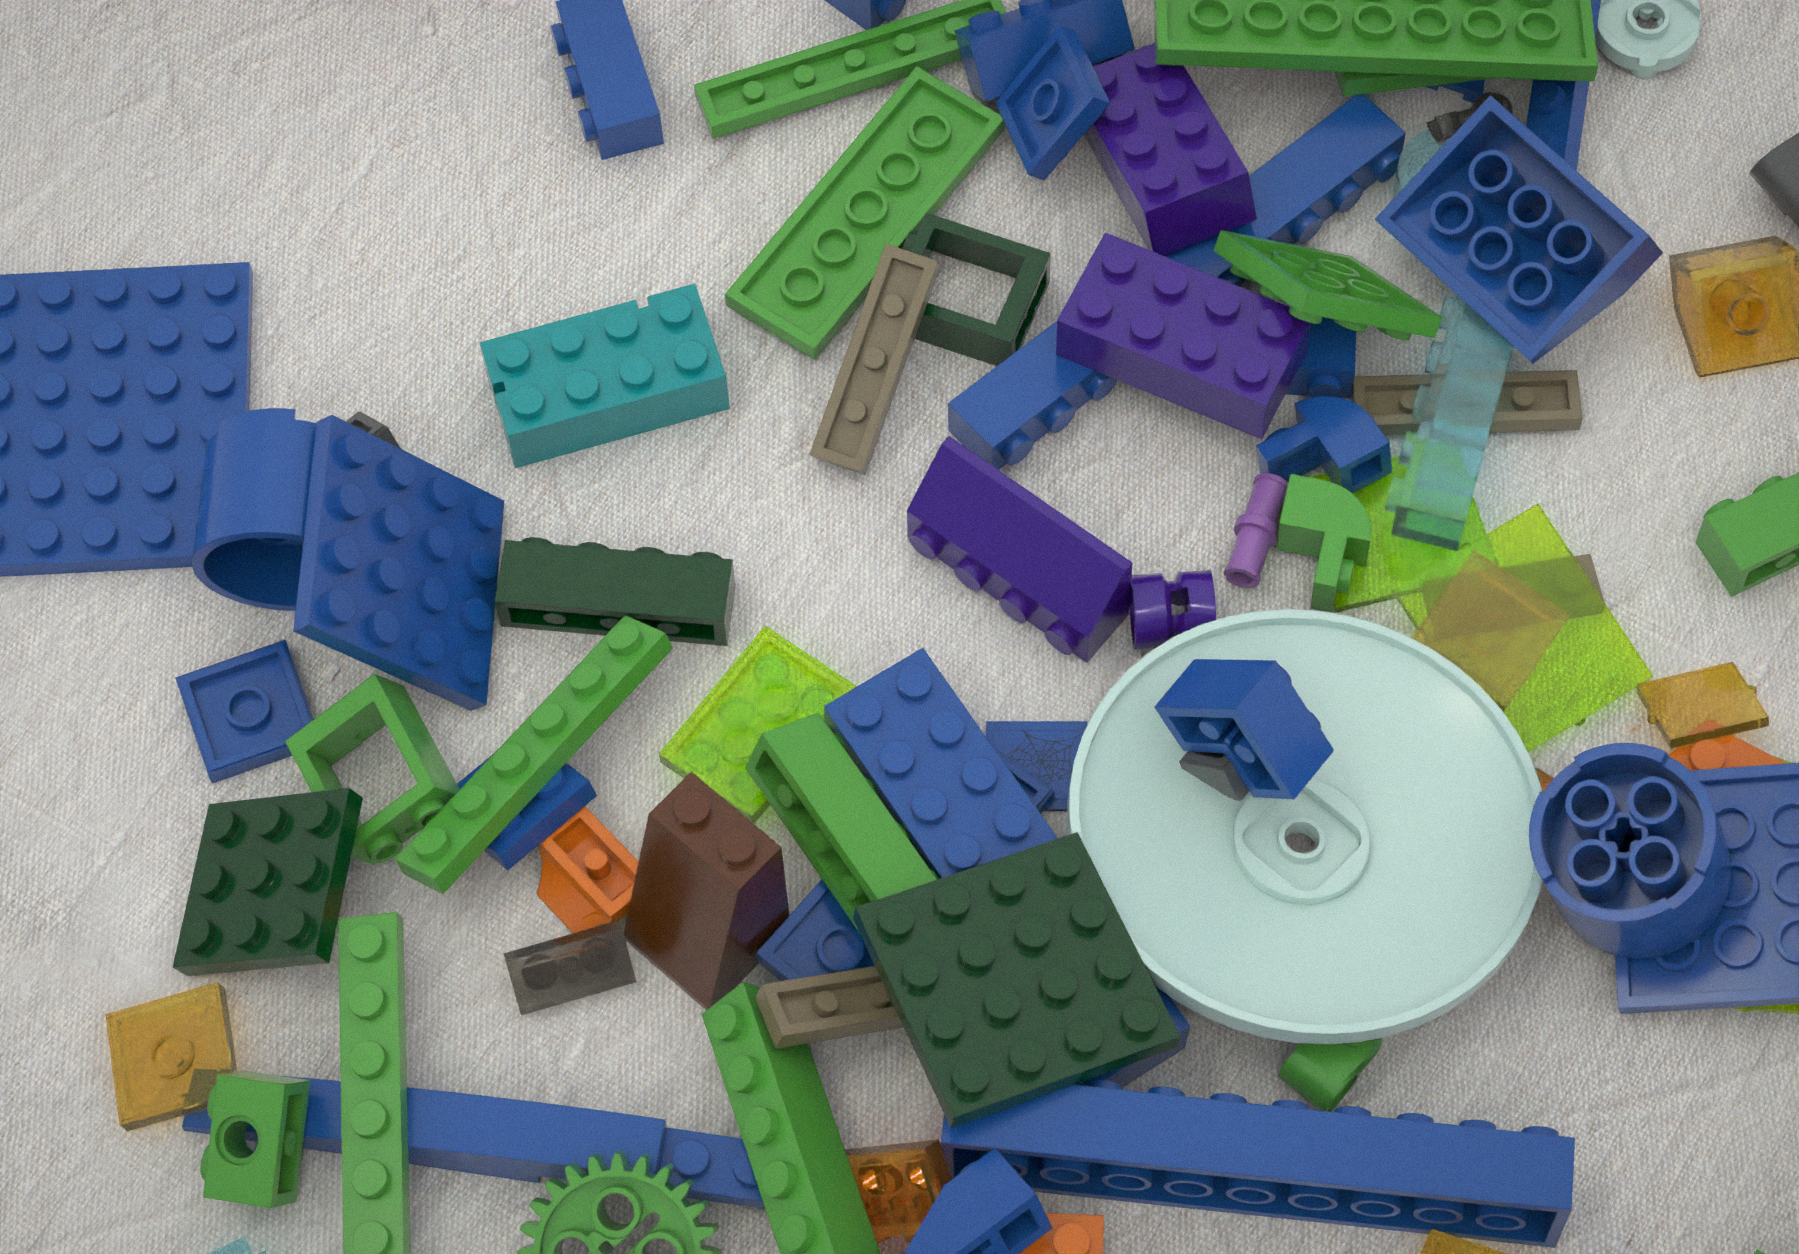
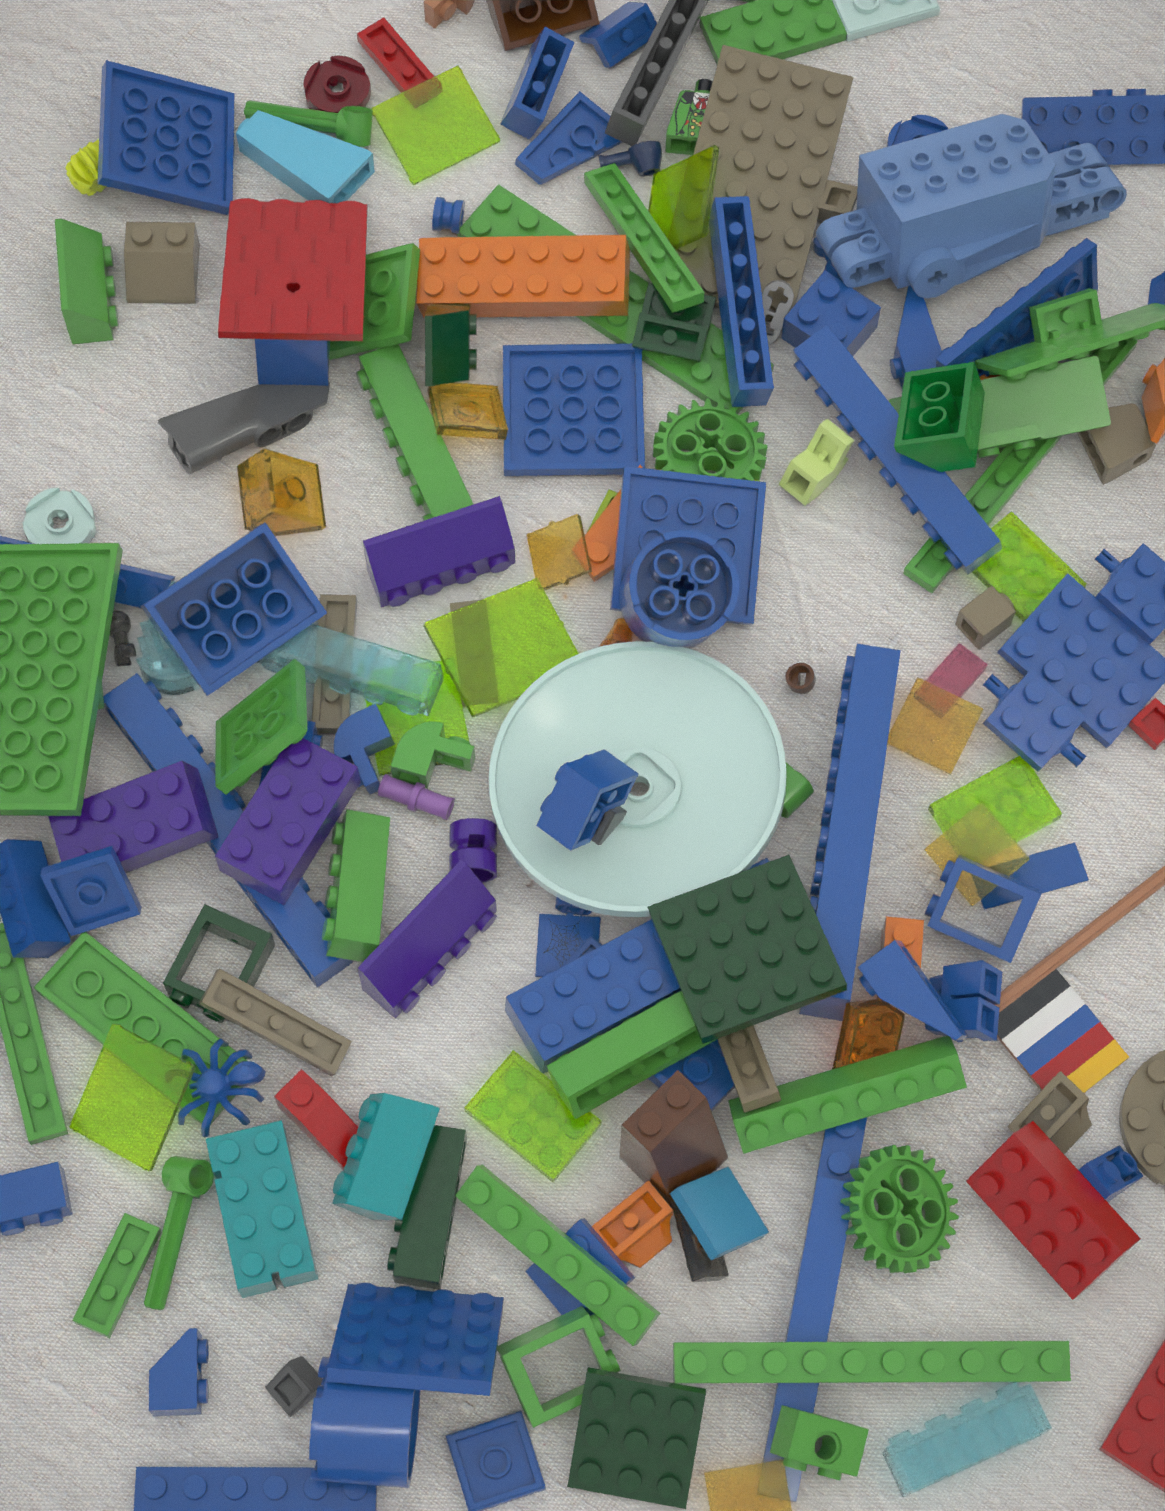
camera: 90 degrees left, 5 degrees up
(368, 298) = (177, 1379): none -> blue slope
(511, 213) = (117, 1275): none -> bright green plate
(579, 271) = (185, 1180): none -> bright green axle
(610, 987) = (719, 1213): none -> dark azure tile
(678, 510) = (384, 1156): none -> teal slope
(732, 450) = (317, 1116): none -> red slope
(757, 194) = (132, 1097): none -> clear neon green piece
(779, 297) = (215, 1084): none -> blue animal
(1096, 446) = (357, 885): none -> bright green brick
(1491, 627) = (505, 662): clear yellow tile -> none
(1527, 1087) = (793, 678): none -> reddish brown hinge
(1668, 523) = (439, 552): none -> dark purple slope

